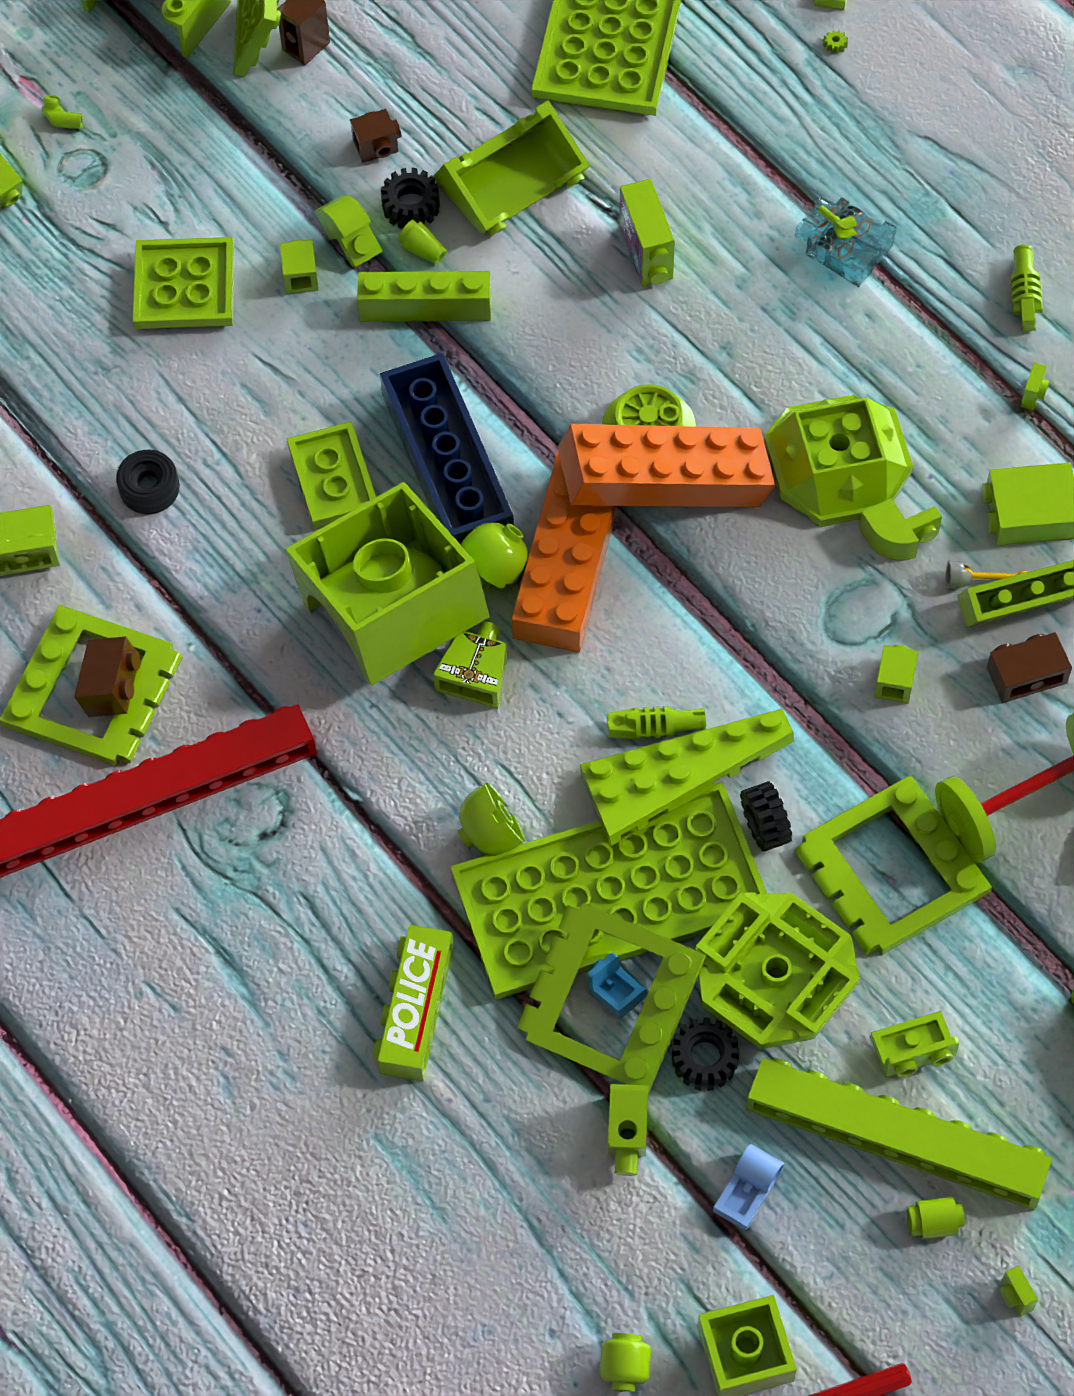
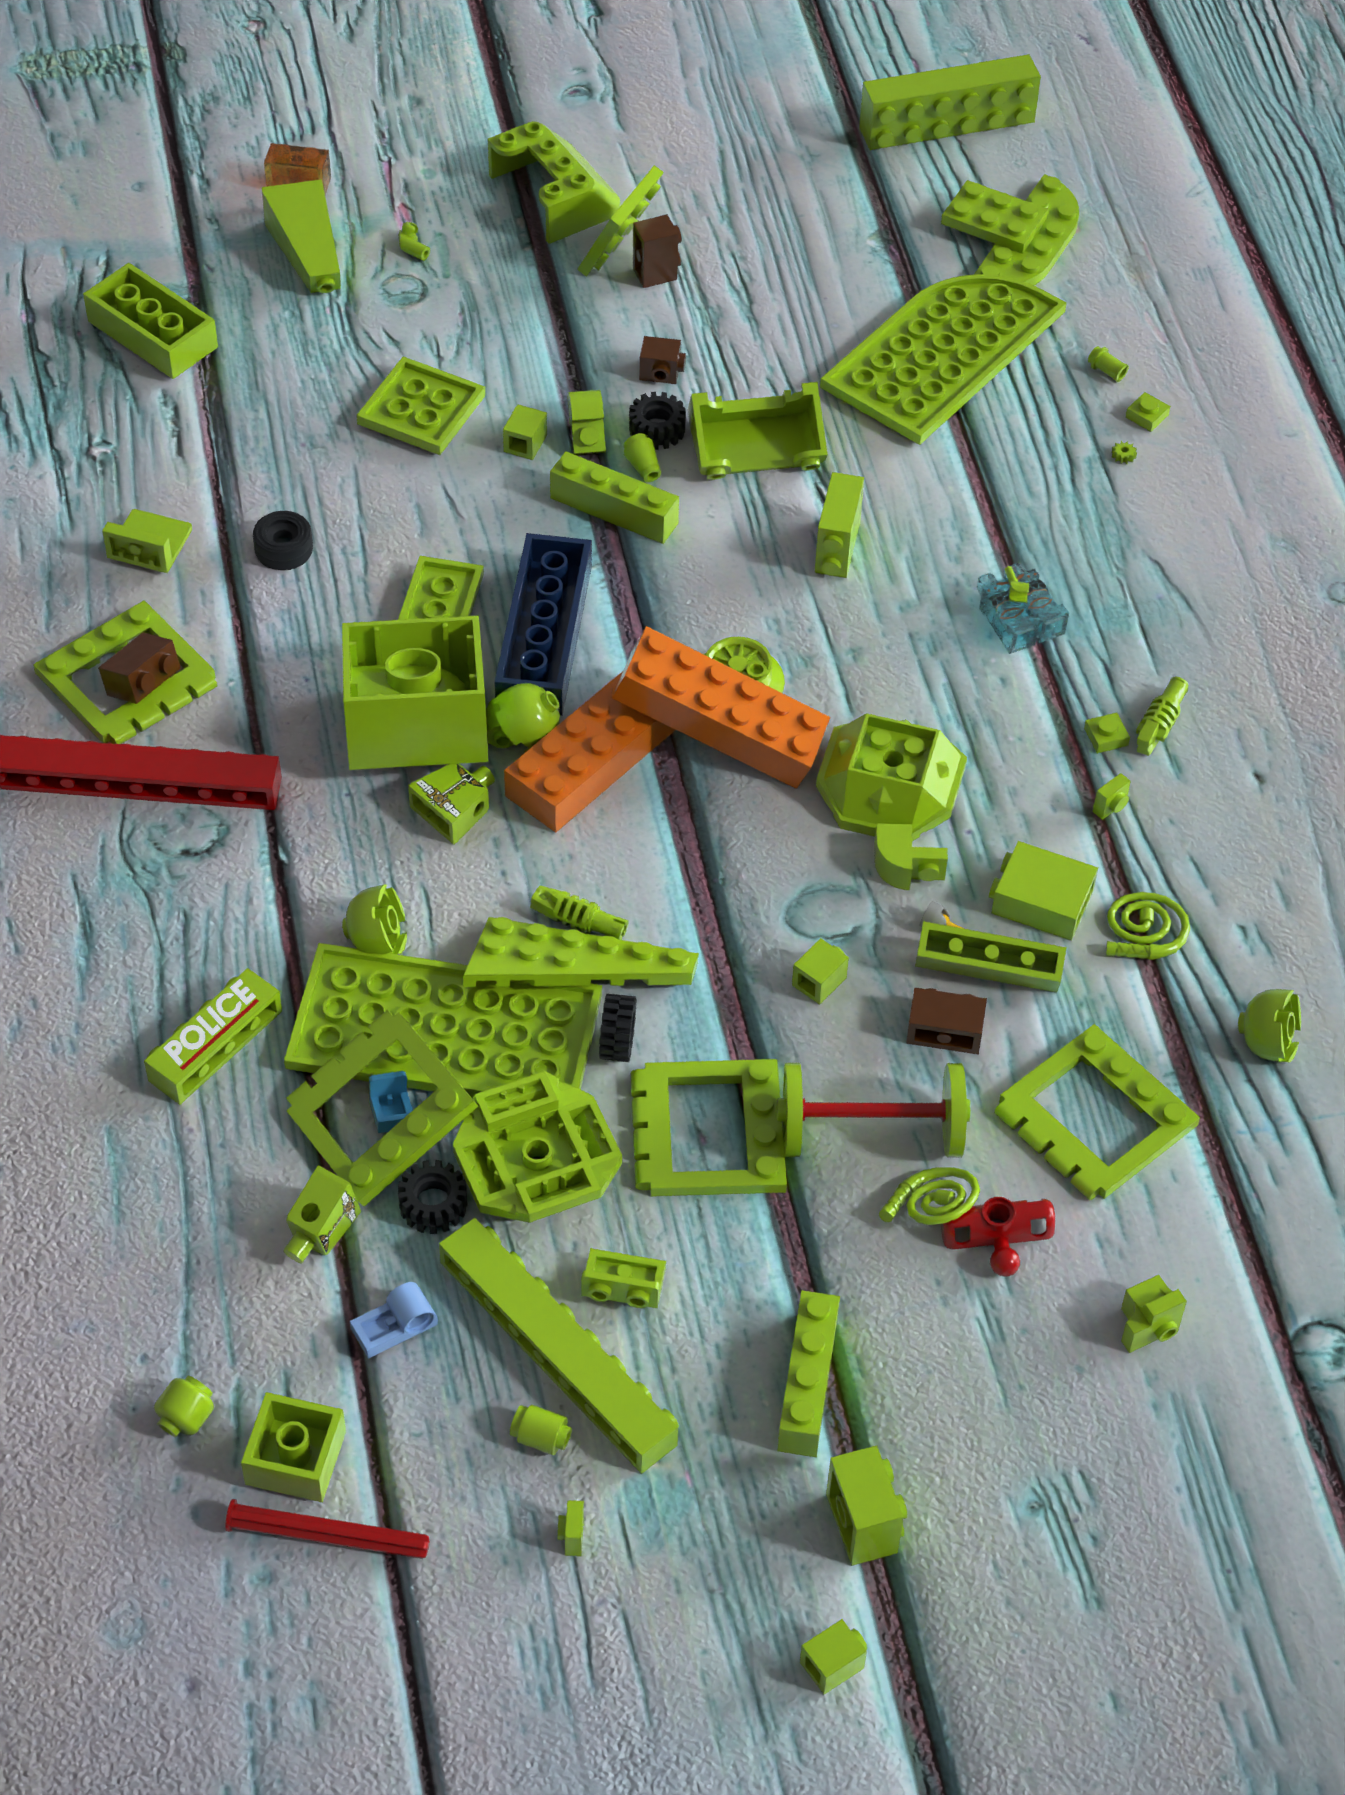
camera: 25 degrees right, 10 degrees down
(988, 325) = (1107, 732): none -> lime plate

